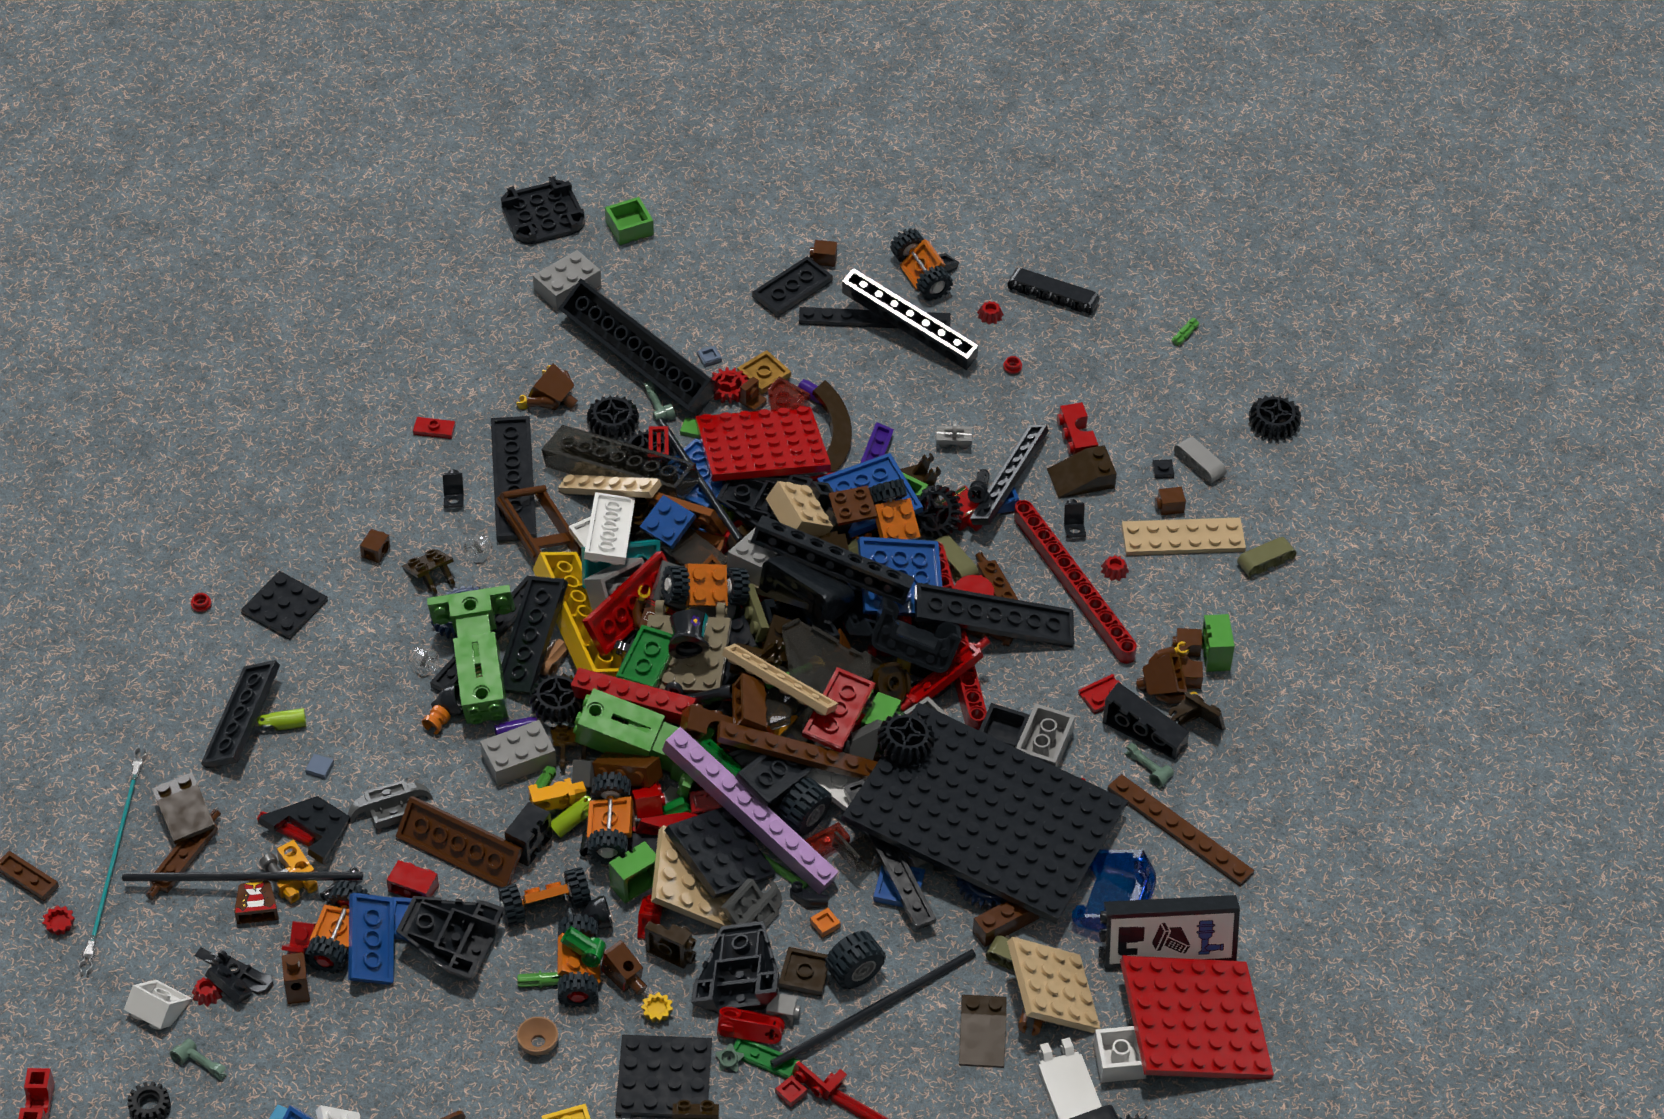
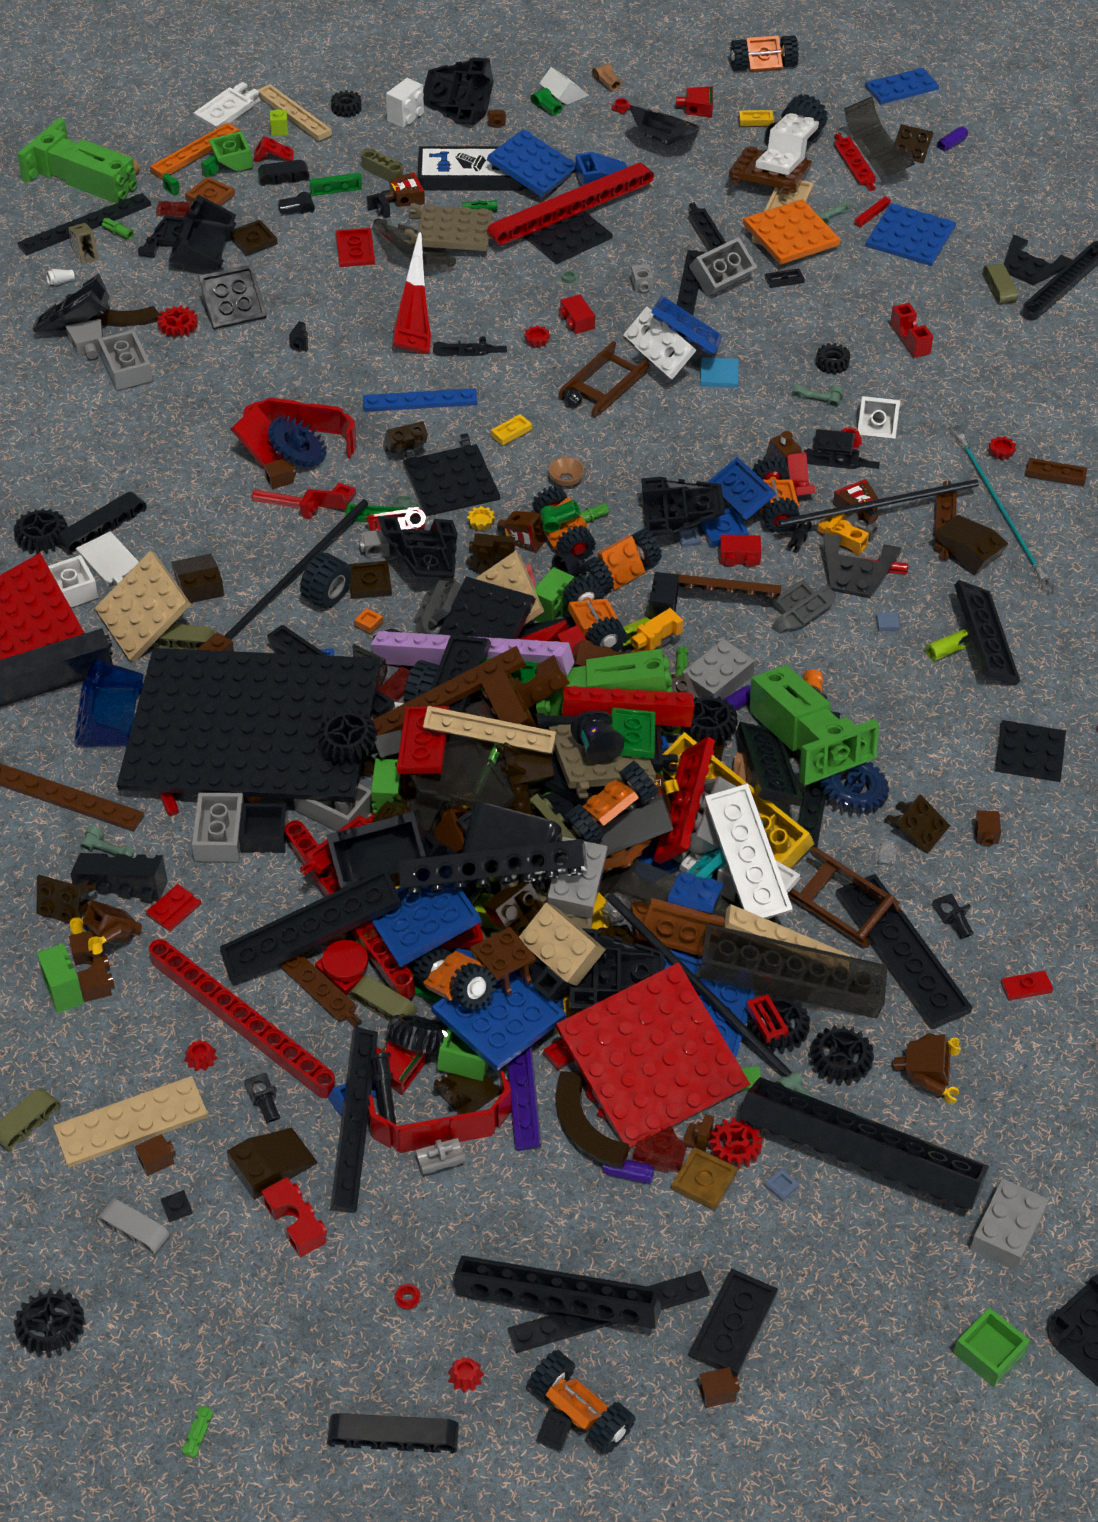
camera: 160 degrees right, 0 degrees up
(944, 445) = (424, 1133): none -> red windscreen

